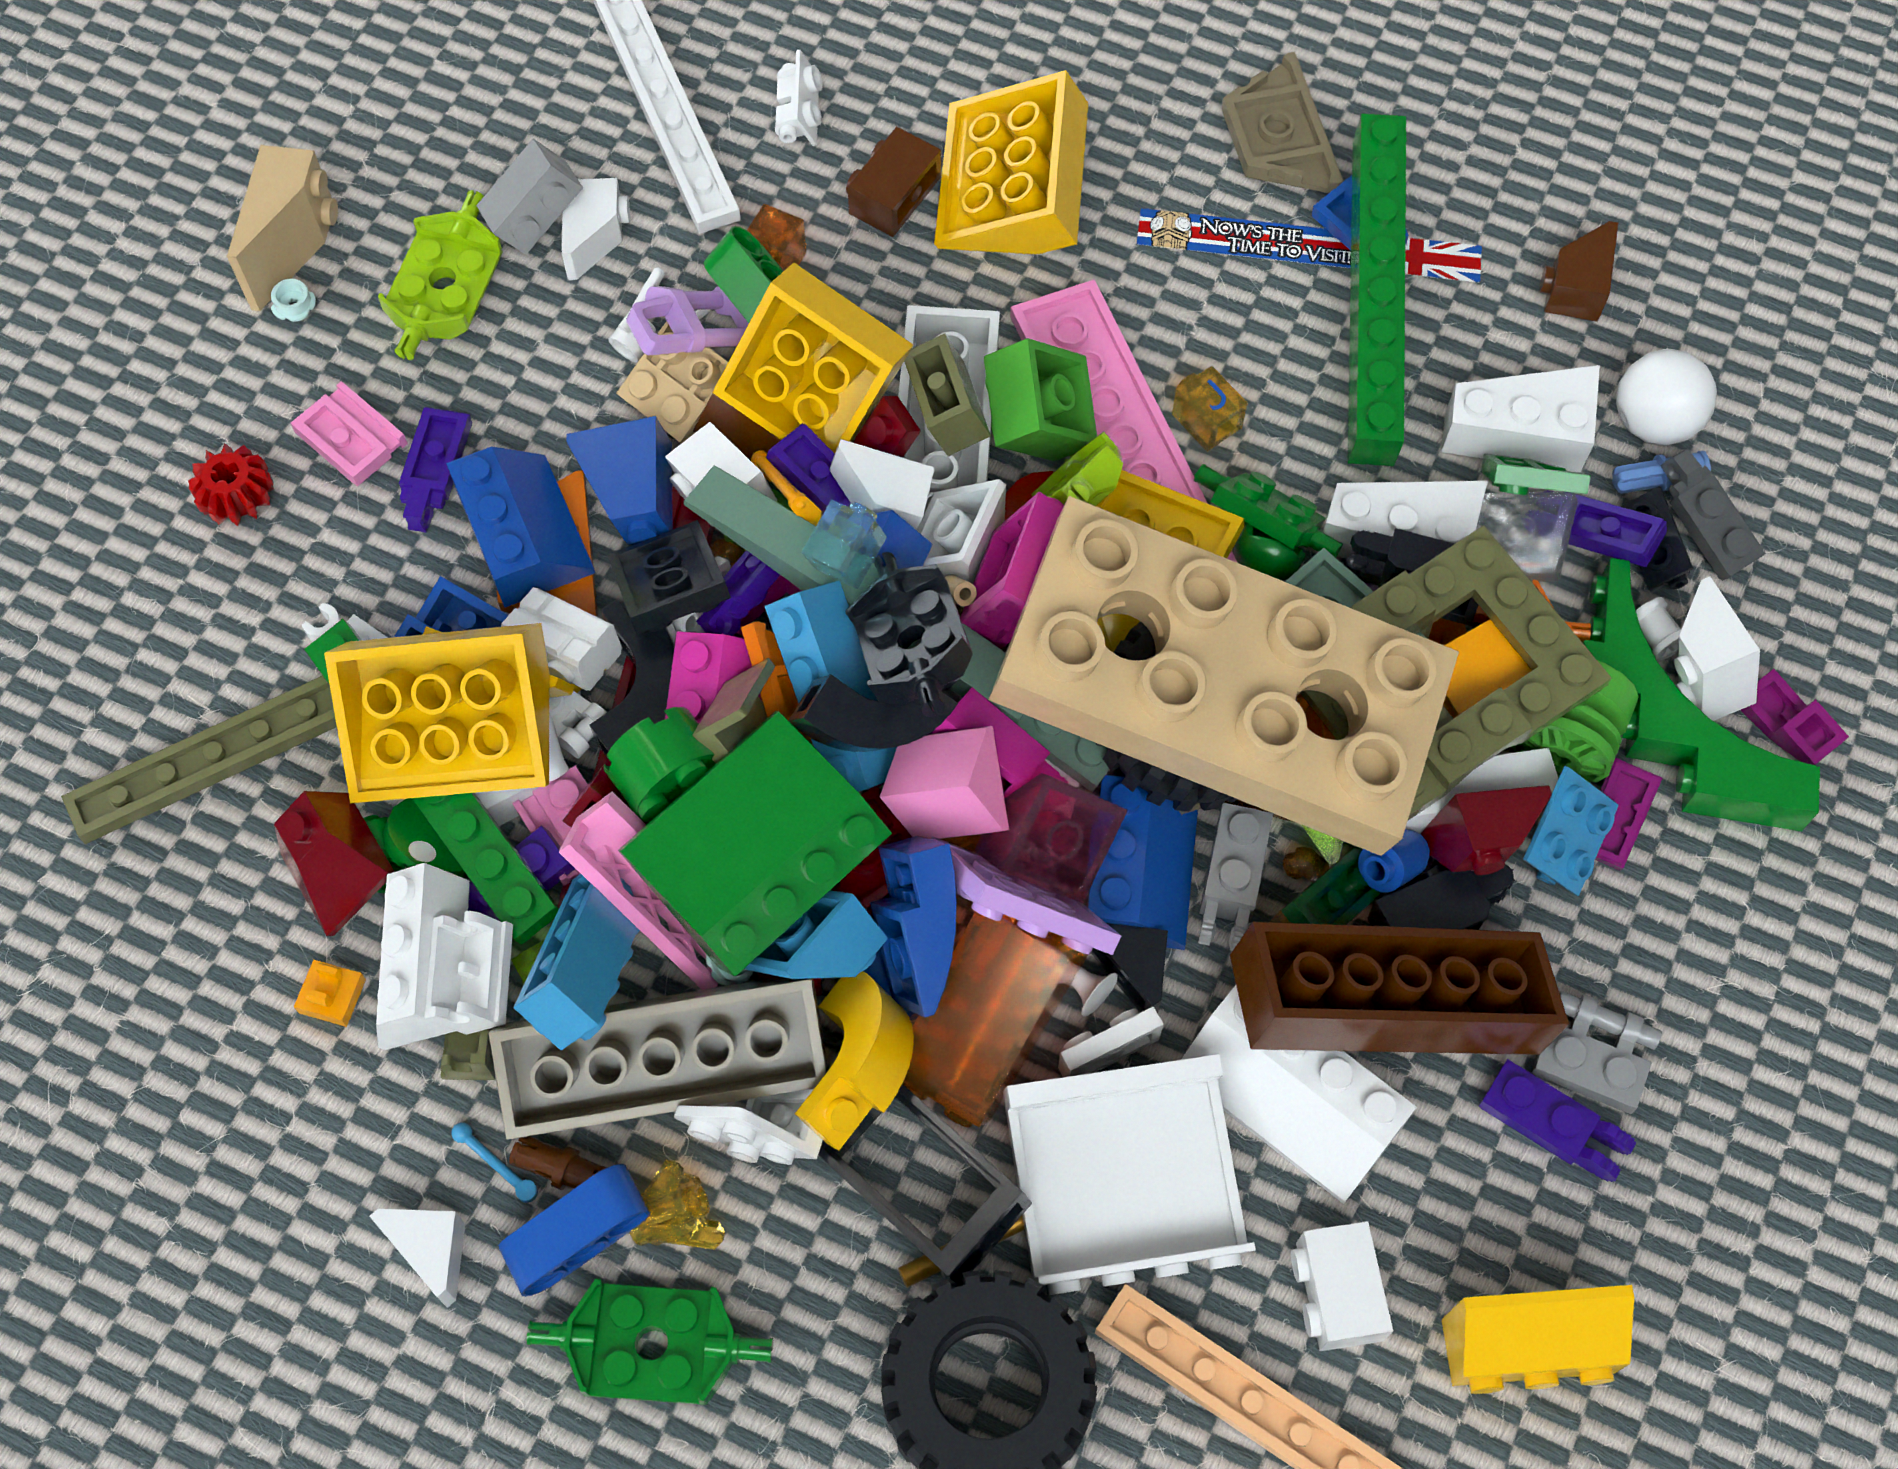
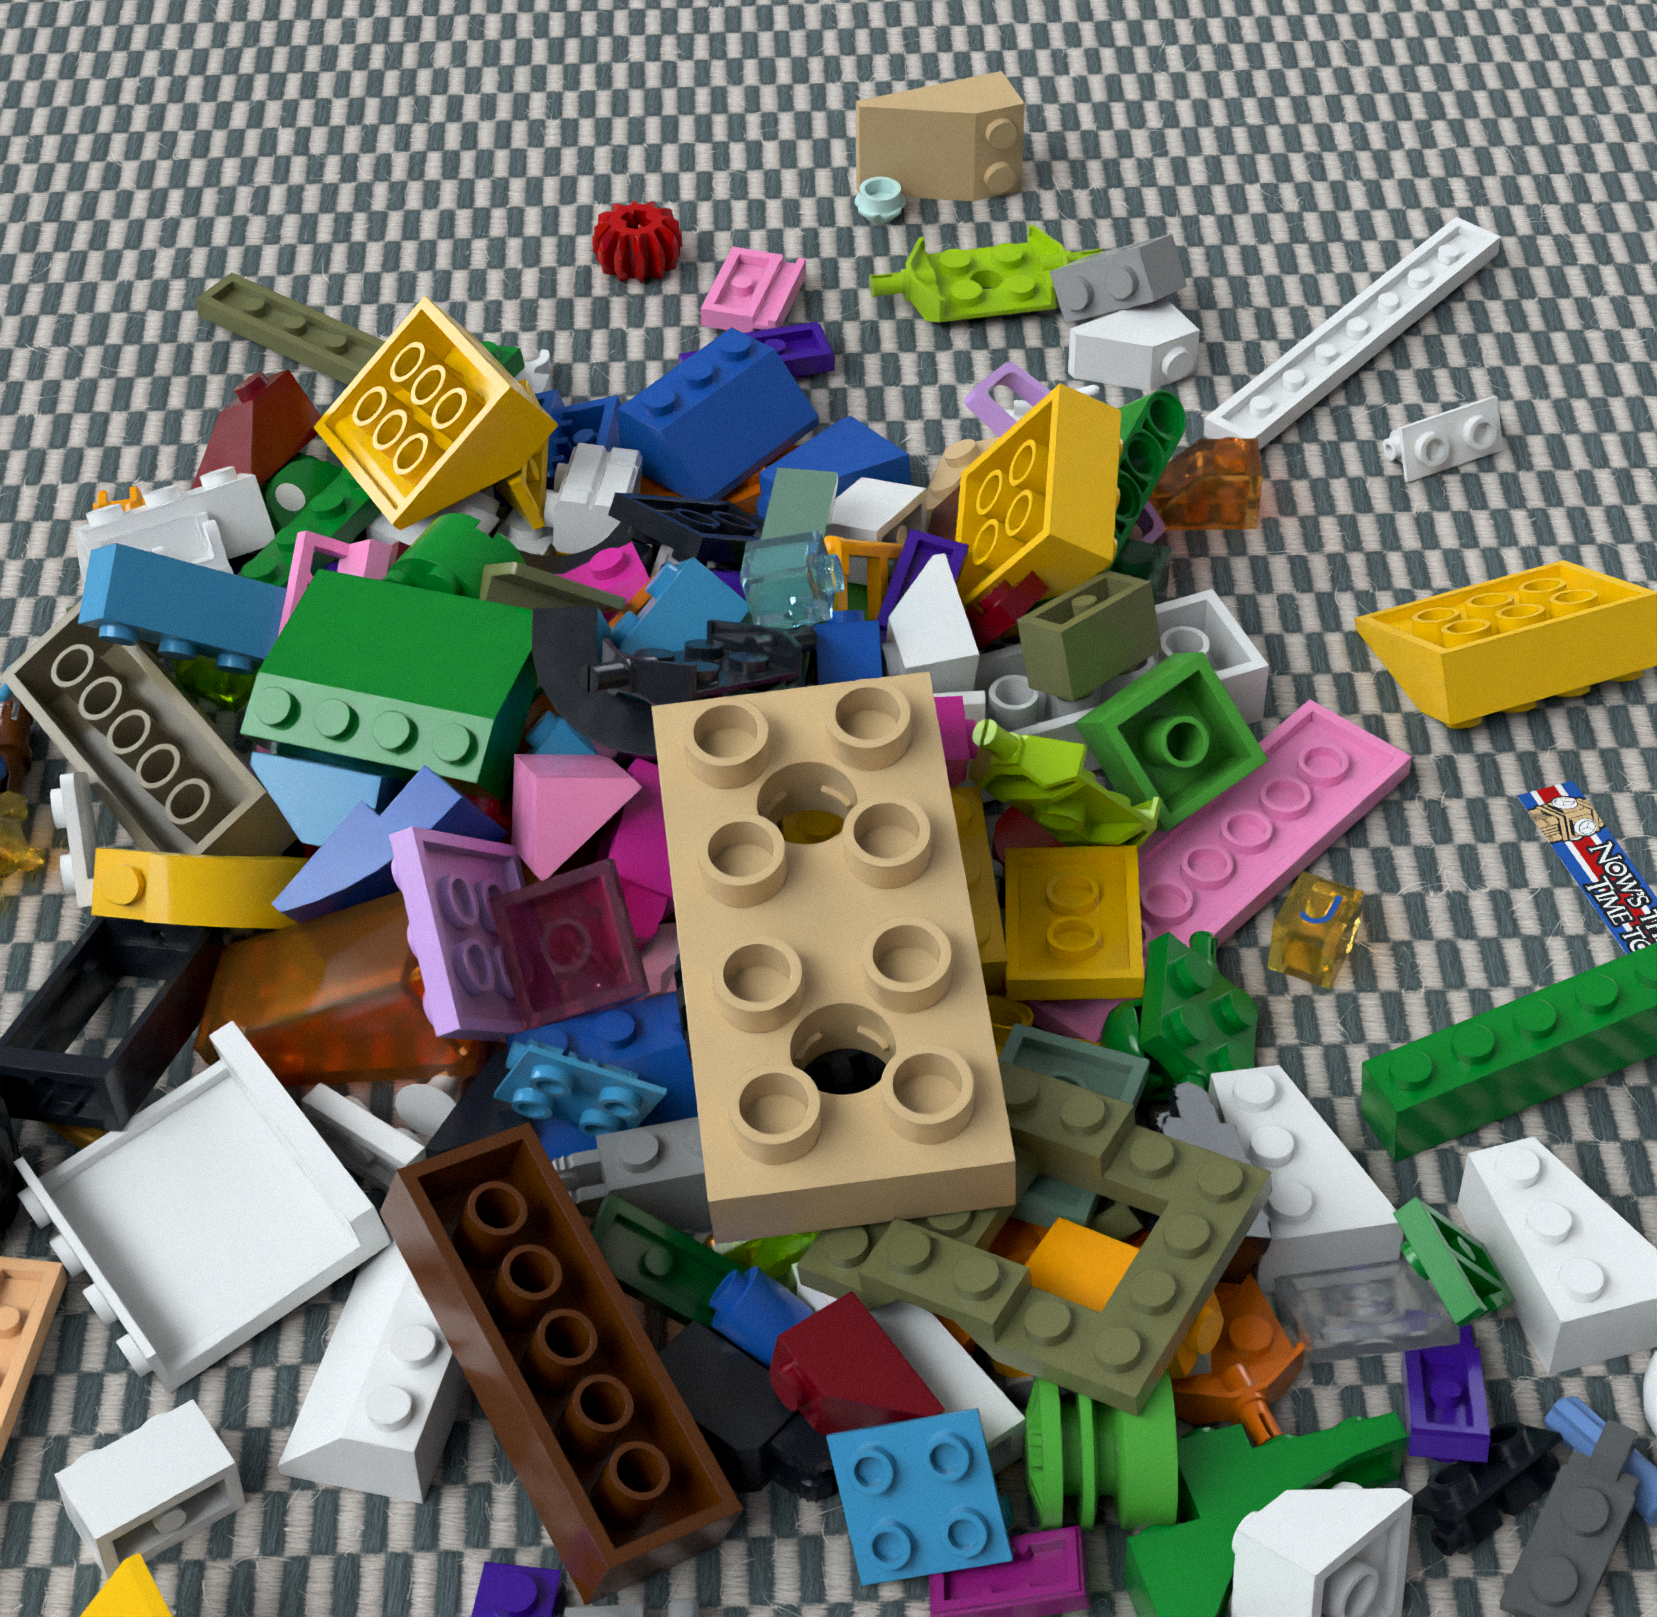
camera: 65 degrees right, 20 degrees down
(893, 181) = (1401, 546): reddish brown brick -> none
(1171, 885) = (576, 1091): none -> dark azure hinge

